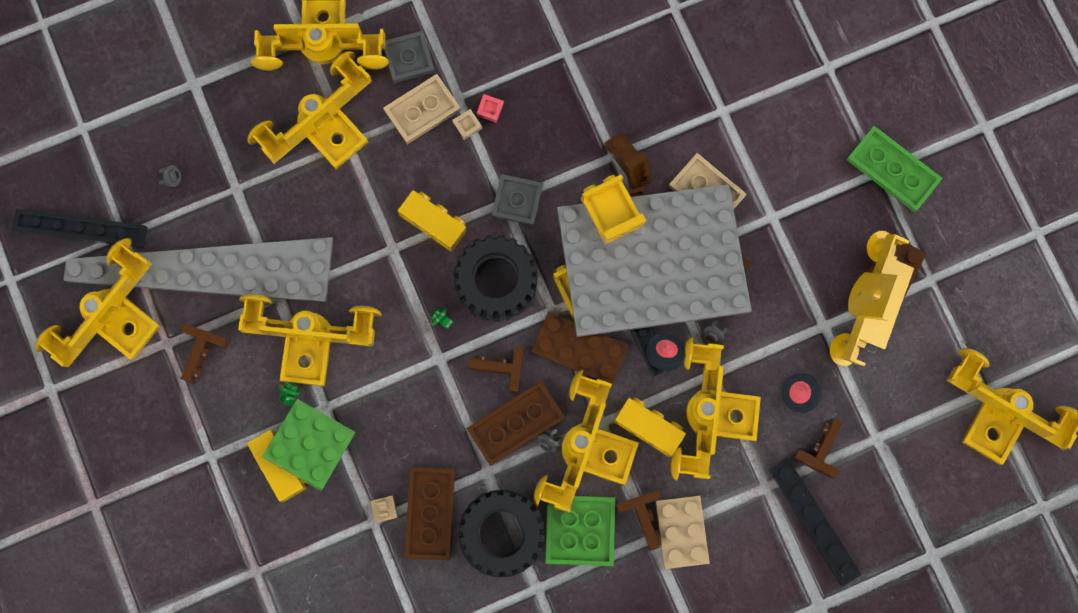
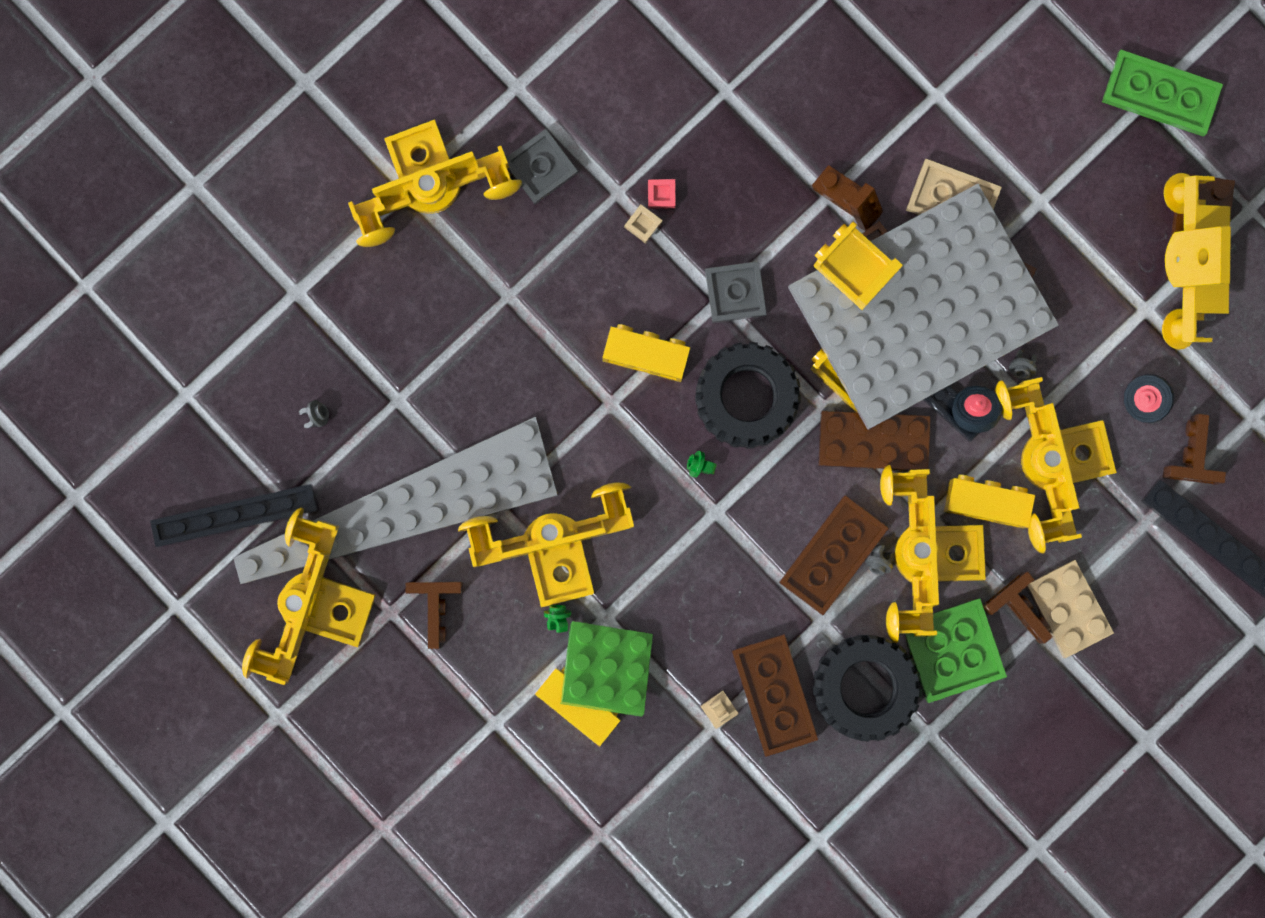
camera: 20 degrees left, 5 degrees up
(320, 119) = (467, 280): yellow piece -> none
(422, 109) = (581, 224): tan plate -> none
(501, 366) = (793, 495): reddish brown bracket -> none

